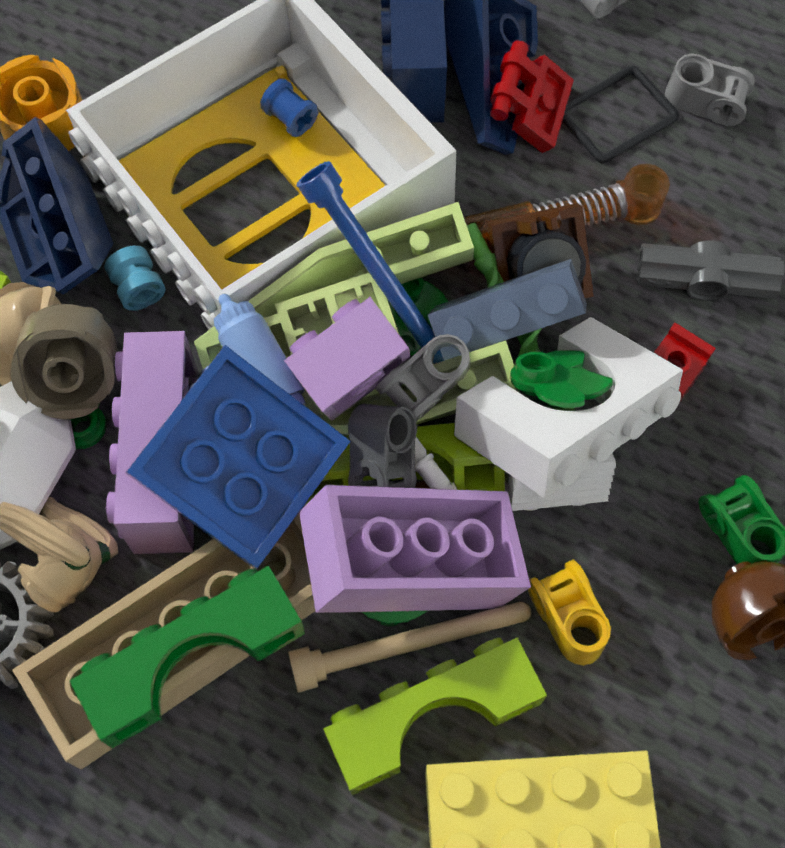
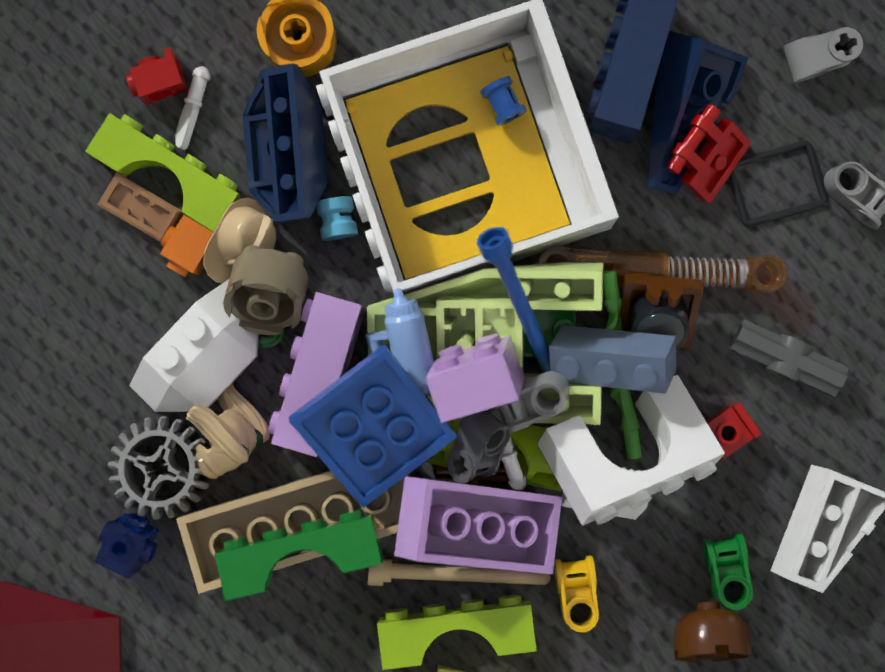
camera: 20 degrees right, 20 degrees up
(558, 378) = (632, 436): green plate -> none

